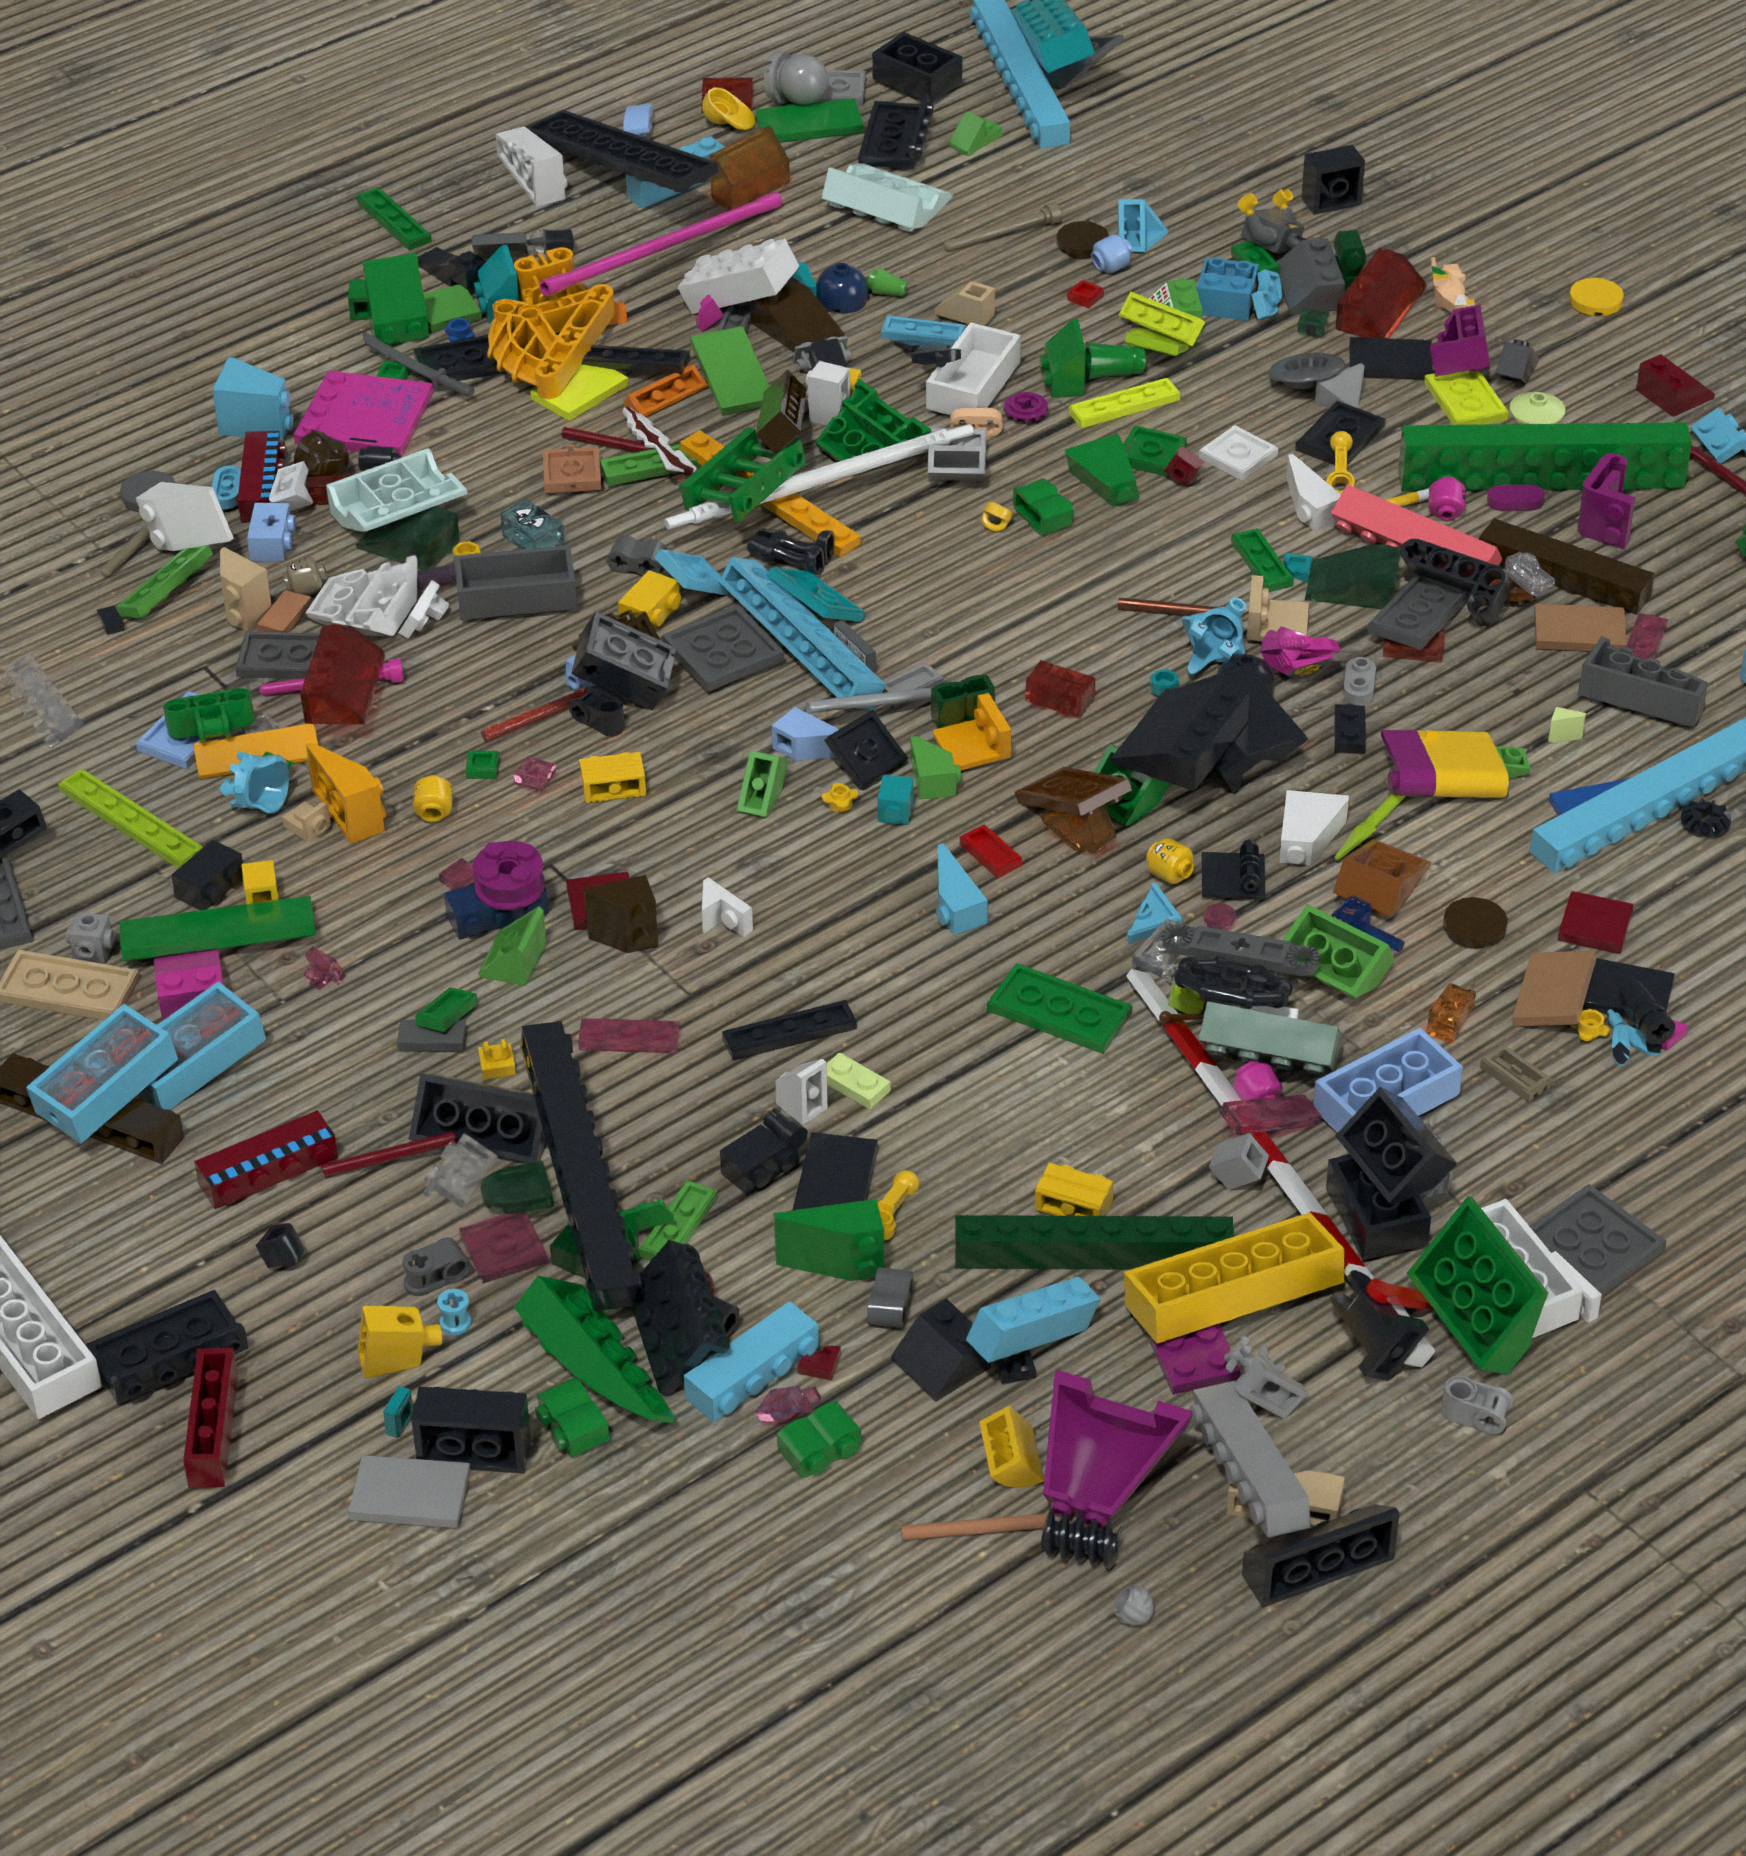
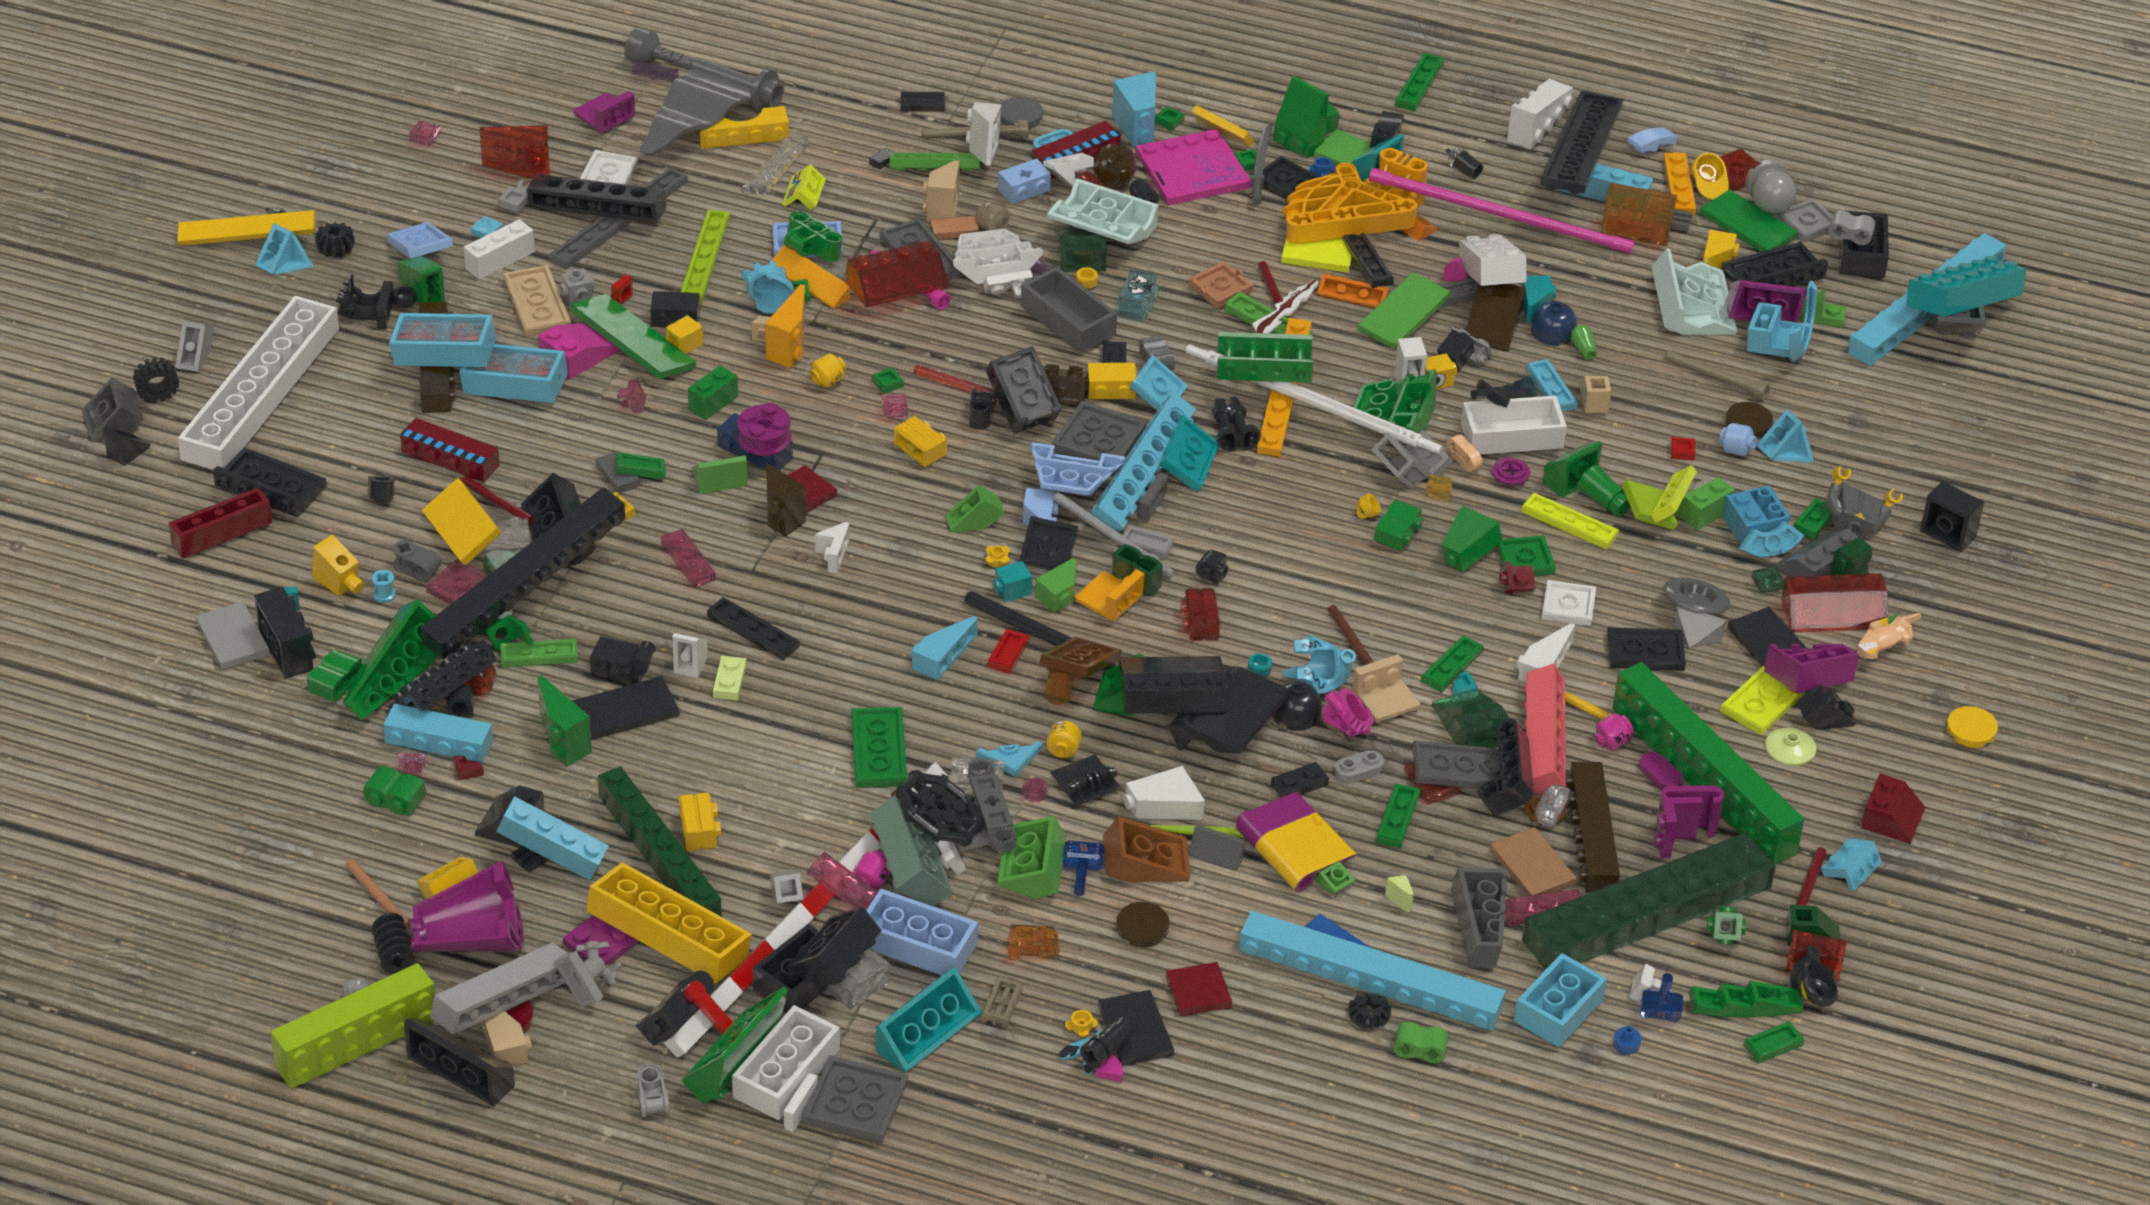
camera: 55 degrees right, 0 degrees up
(50, 552) = (922, 101): none -> black tile
(100, 696) = (806, 187): none -> neon yellow panel
(130, 901) = (622, 289): none -> red tile
(320, 365) = (1225, 127): none -> yellow tile
(382, 900) = (713, 392): none -> green brick
(413, 1193) = (461, 521): none -> yellow tile
(487, 244) = (1417, 137): dark grey tile -> none
(603, 588) = (1114, 352): none -> black tile
(696, 129) = (1679, 181): none -> light orange plate
(779, 684) = (1071, 473): none -> light blue wedge
(781, 412) = (1344, 344): dark brown brick -> none
(834, 149) = (1720, 248): none -> yellow slope
(890, 1297) = (541, 772): dark grey axle -> none
(904, 1184) = (654, 741): yellow piece -> none
(912, 53) = (1852, 227): none -> light grey axle
(945, 154) = (1746, 295): none -> magenta slope
(952, 823) = (1015, 619): none -> black axle
(994, 651) = (1212, 566): none -> black plate
(996, 168) = (1782, 338): none -> medium azure piece
(1005, 460) = (1439, 487): none -> clear yellow tile
(1211, 1625) = (351, 1025): none -> lime brick
(1341, 443) = (1619, 648): yellow piece -> none
(1408, 822) = (1217, 847): none -> dark grey slope
(1447, 685) = (1398, 815): none -> green tile
(1515, 1140) = (926, 1021): none -> teal slope
(1554, 988) = (1100, 988): medium nougat tile -> none
(1695, 576) = (1649, 902): none -> clear green brick

